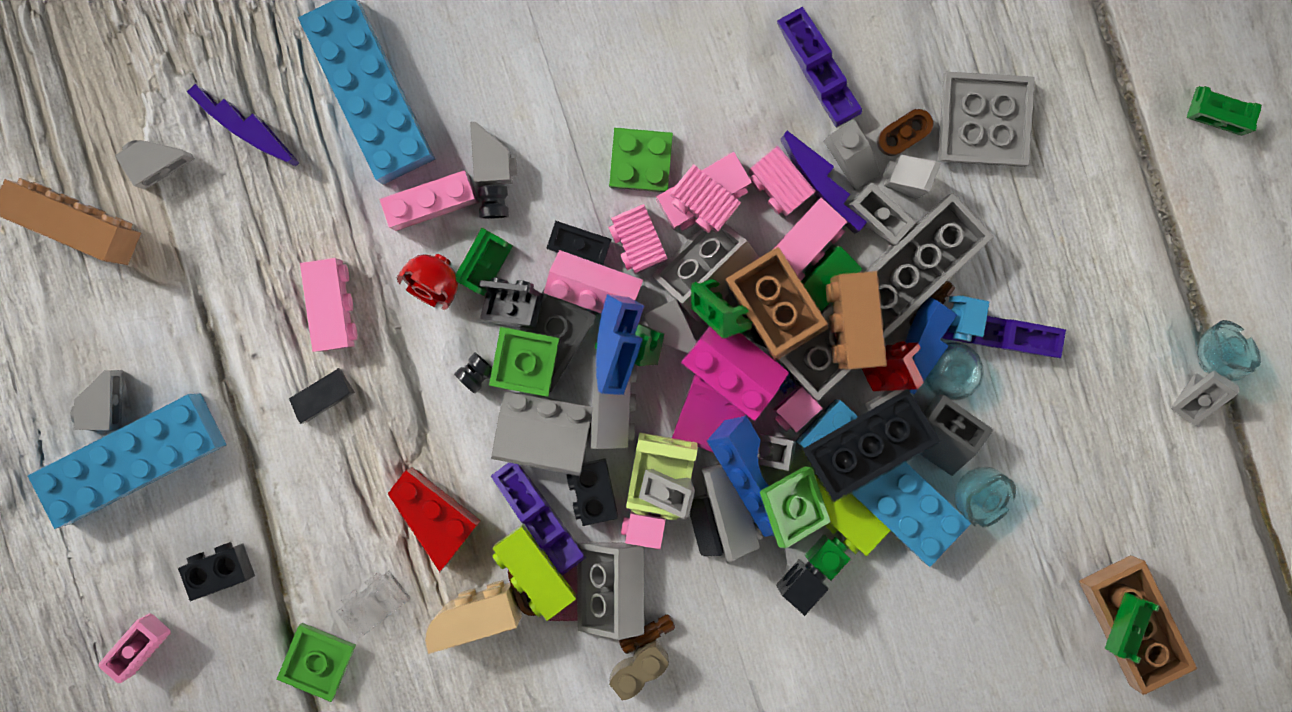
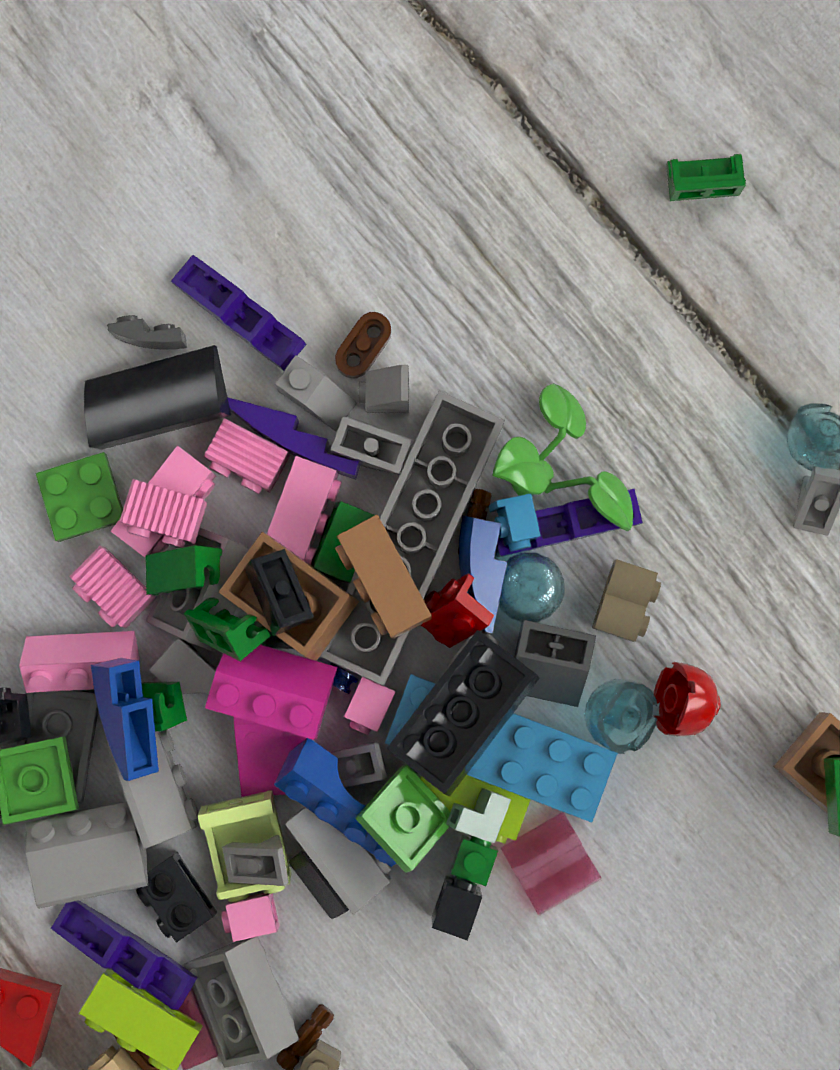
camera: 25 degrees left, 5 degrees down
(578, 242) = (46, 619): black plate -> none
(701, 248) = (181, 569): none -> green hinge
(730, 107) = (155, 398): none -> black slope
(733, 49) = (136, 332): none -> dark grey slope
(773, 298) = (278, 591): none -> black slope
(853, 530) = (484, 819): none -> piece
(882, 583) = (551, 863): none -> clear pink slope
(986, 119) = (447, 293): light grey plate -> none
(994, 285) = (532, 475): none -> bright green plant
(1023, 411) = (626, 600): none -> dark tan brick
(1037, 504) = (686, 700): none -> red cylinder

